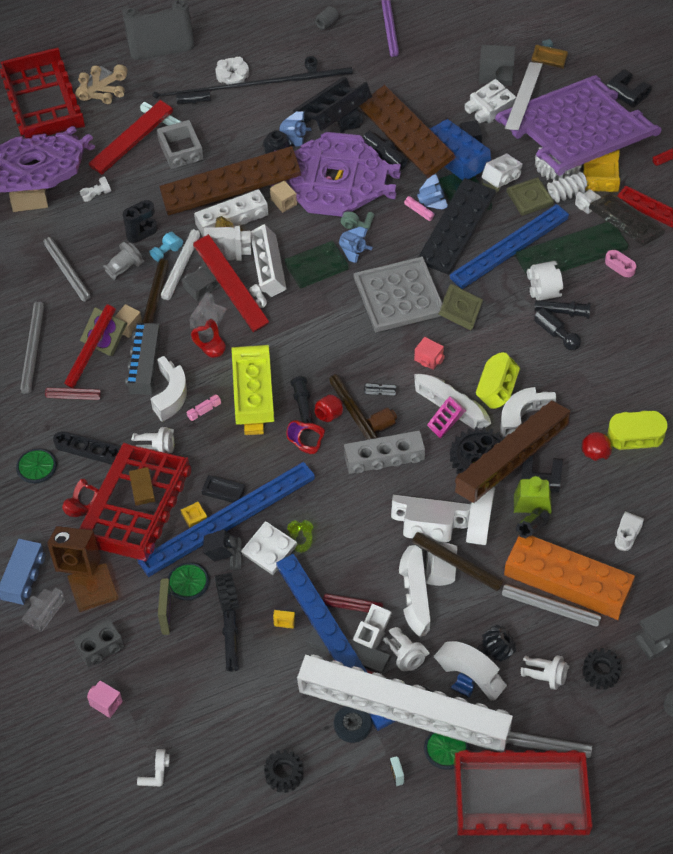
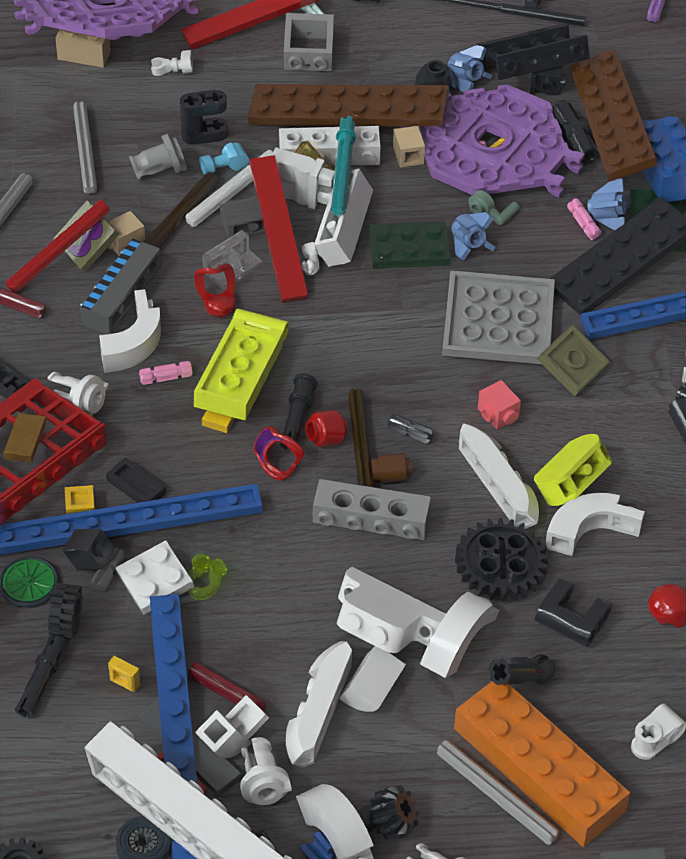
camera: 20 degrees right, 5 degrees down
(245, 206) = (345, 138): none -> teal axle
(457, 561) = (392, 684): dark brown axle -> none
(460, 410) = (488, 495): dark pink slope -> none
(512, 451) = (541, 566): reddish brown brick -> none
(532, 494) = (545, 634): lime torso -> none

